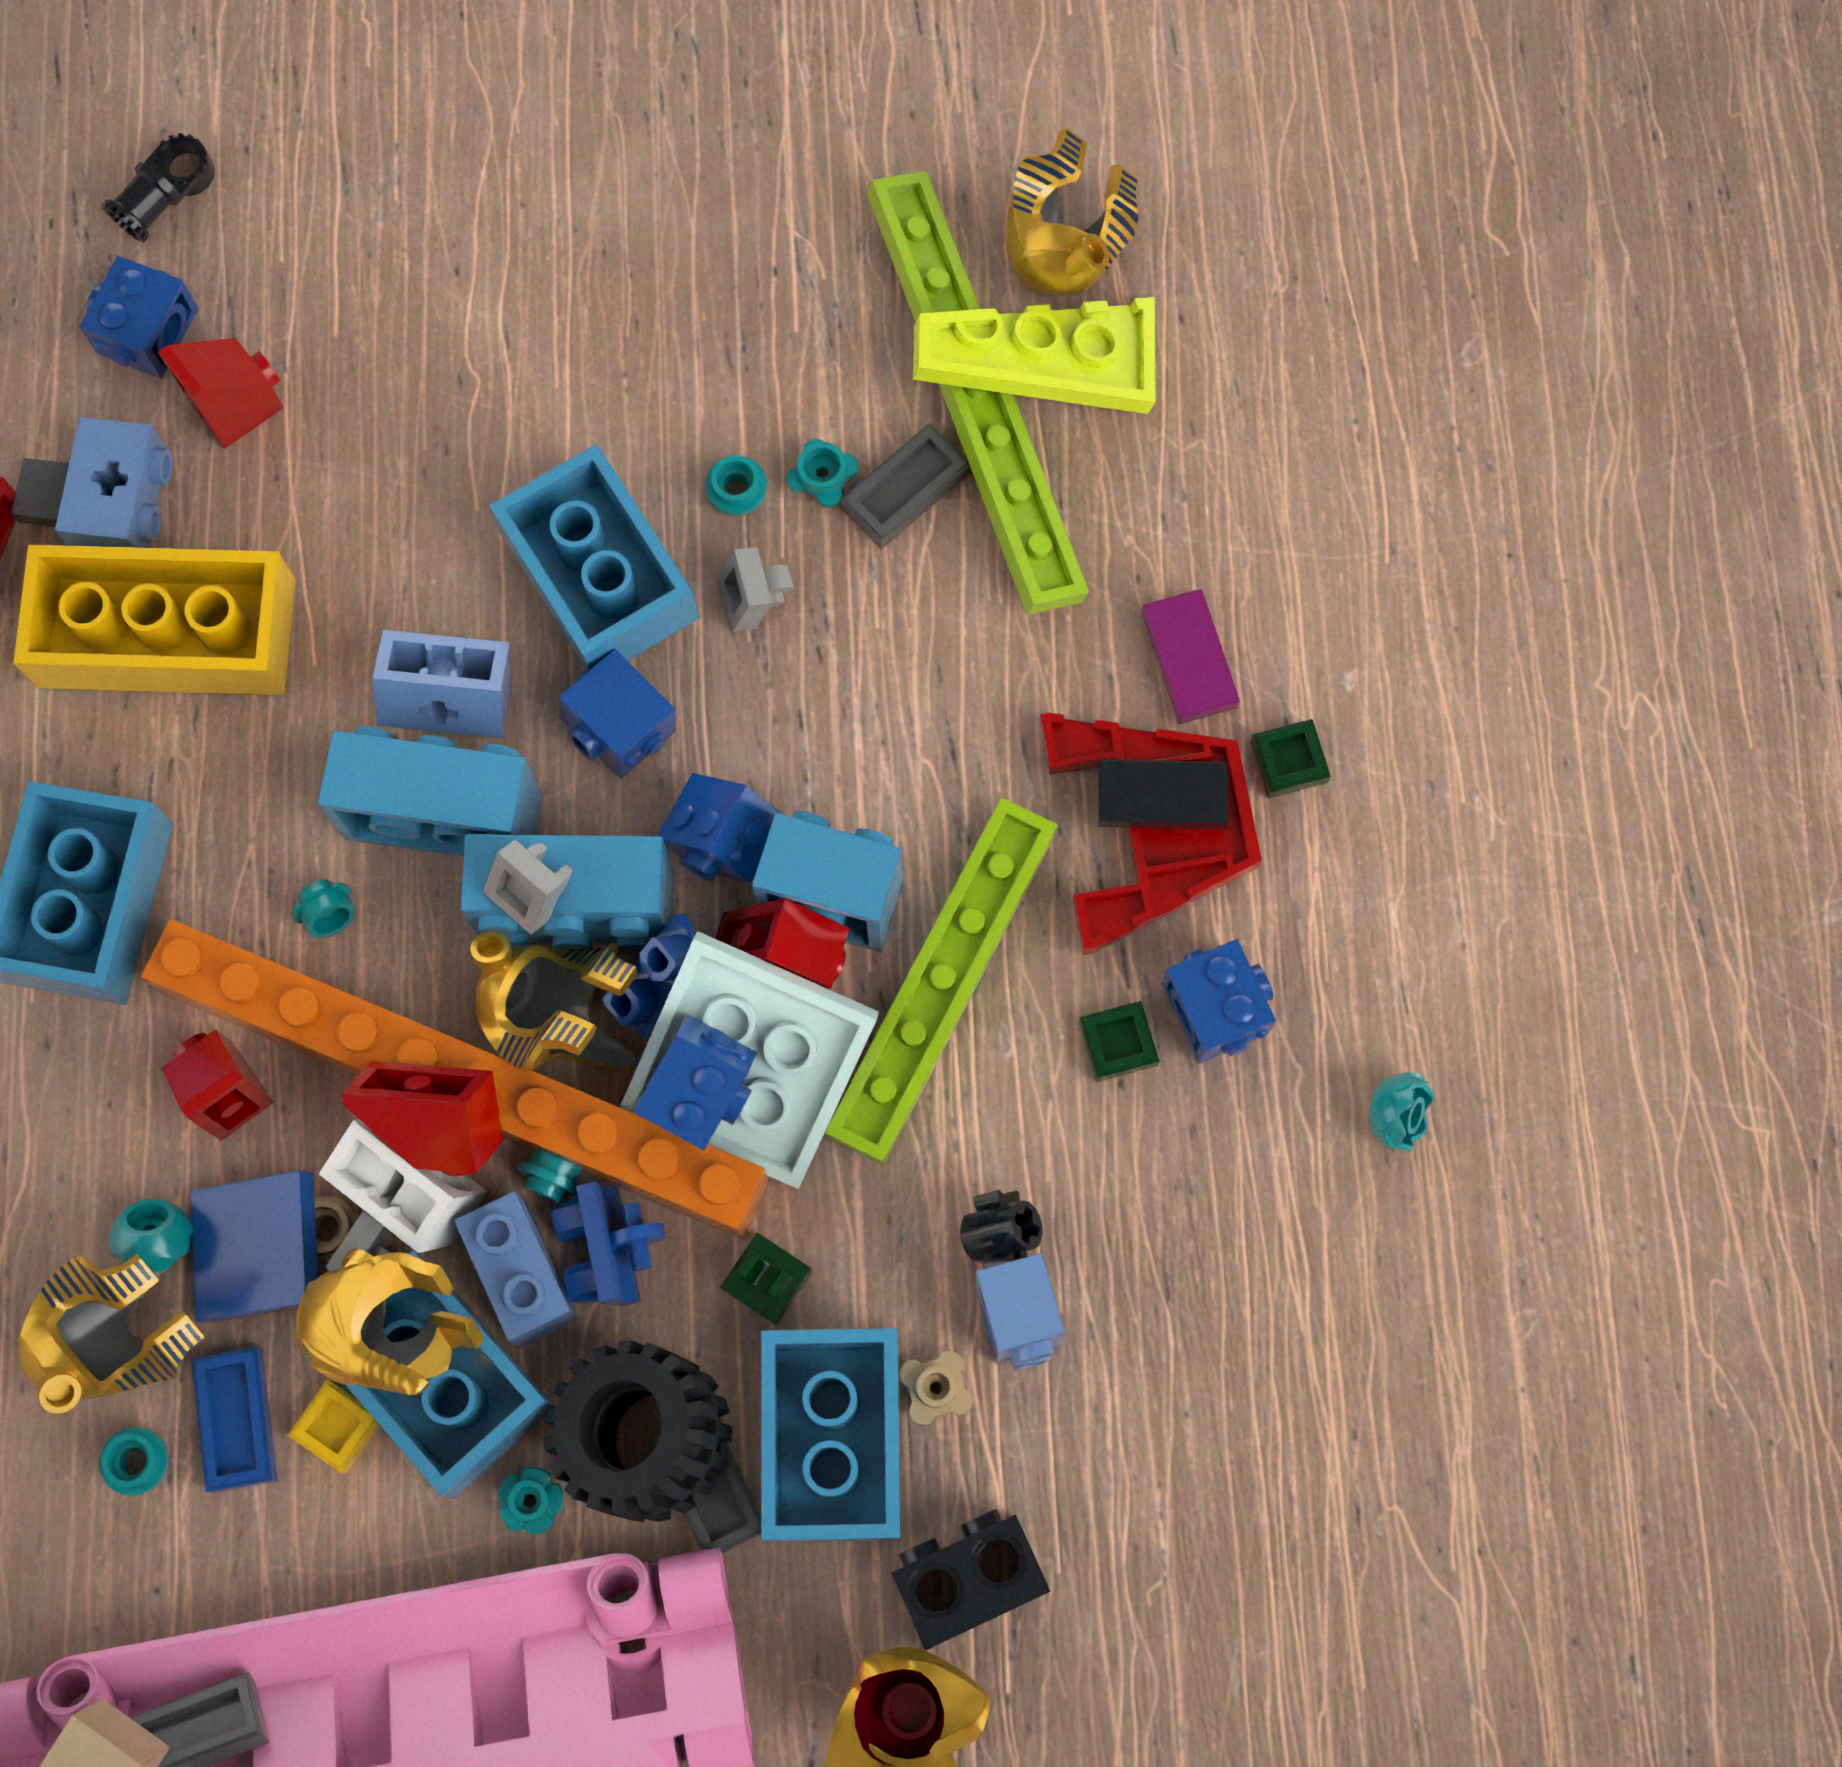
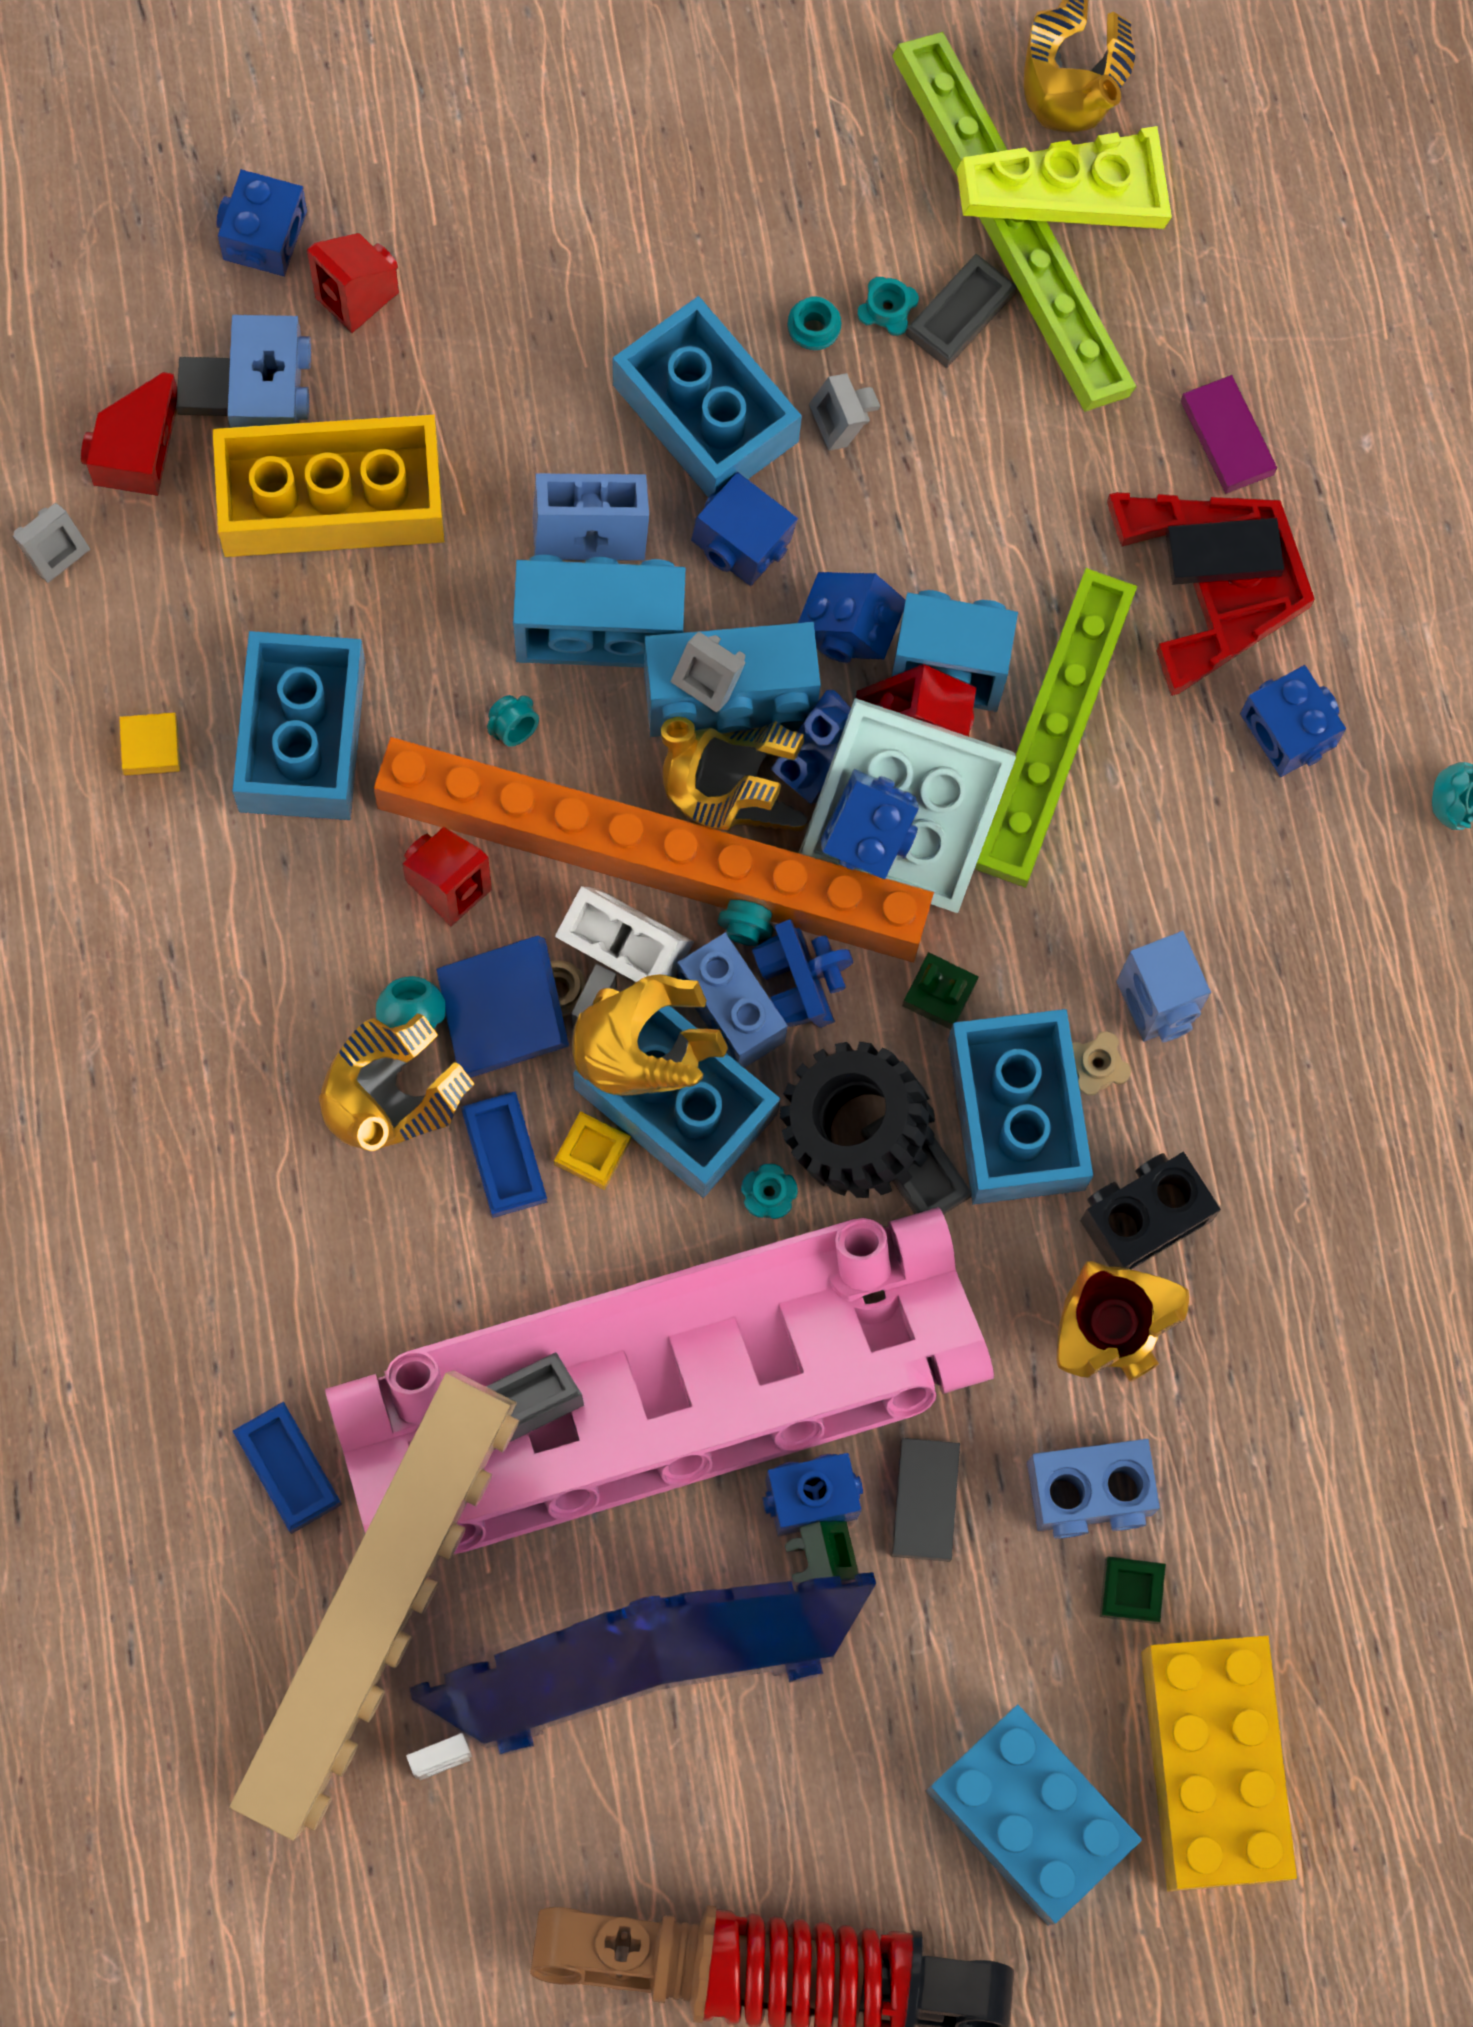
camera: 15 degrees left, 0 degrees up
(114, 1457) = (424, 1179): teal plate -> none
(156, 188) = (256, 107): black connector -> none
(429, 1113) = (649, 873): red slope -> none
(1000, 1228) = (1134, 923): black gear -> none
(1118, 1041) = (1211, 764): dark green tile -> none
(1290, 758) = (1325, 513): dark green tile -> none

